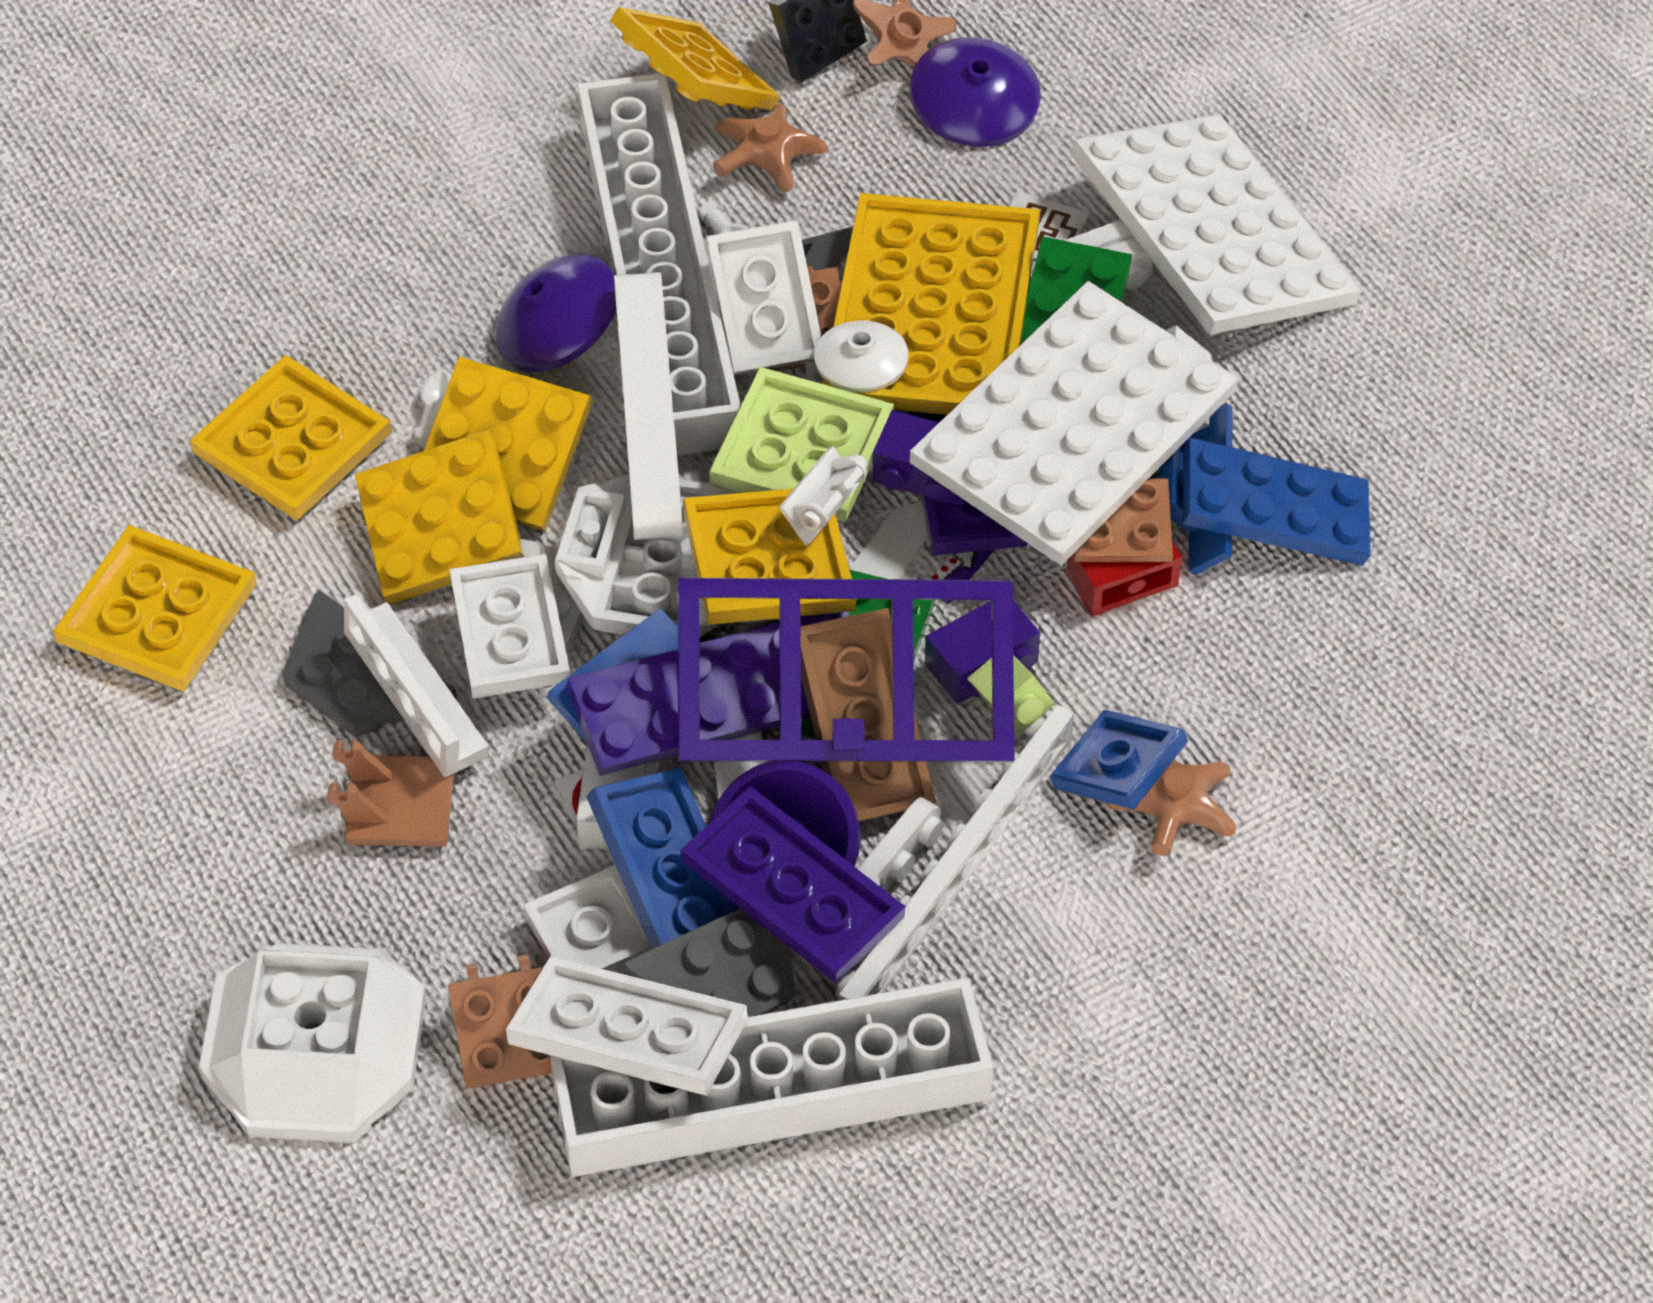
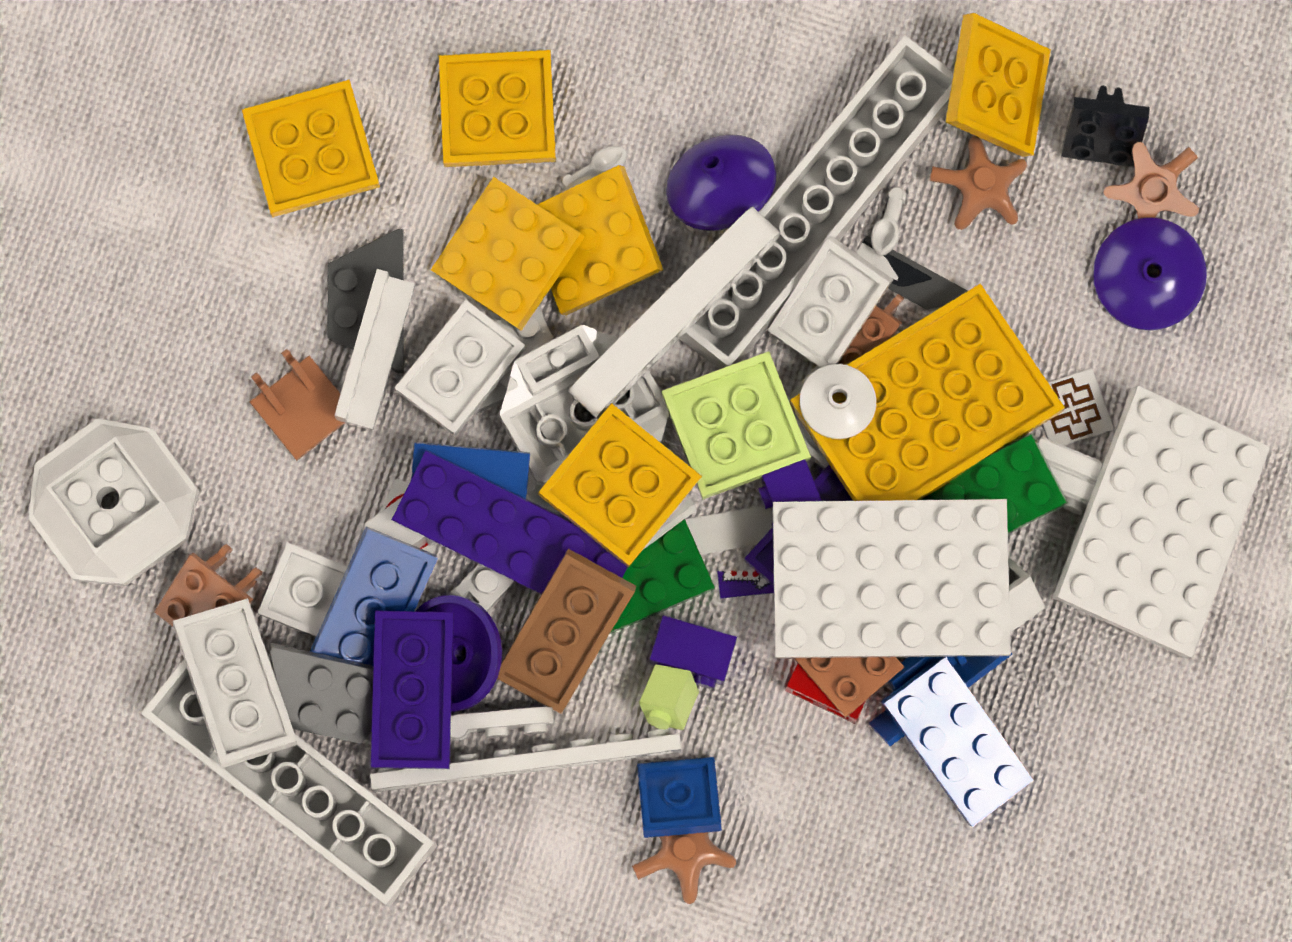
camera: 50 degrees right, 25 degrees up
(822, 492) = (672, 484): white hinge -> none
(847, 733) = (530, 641): dark purple door -> none

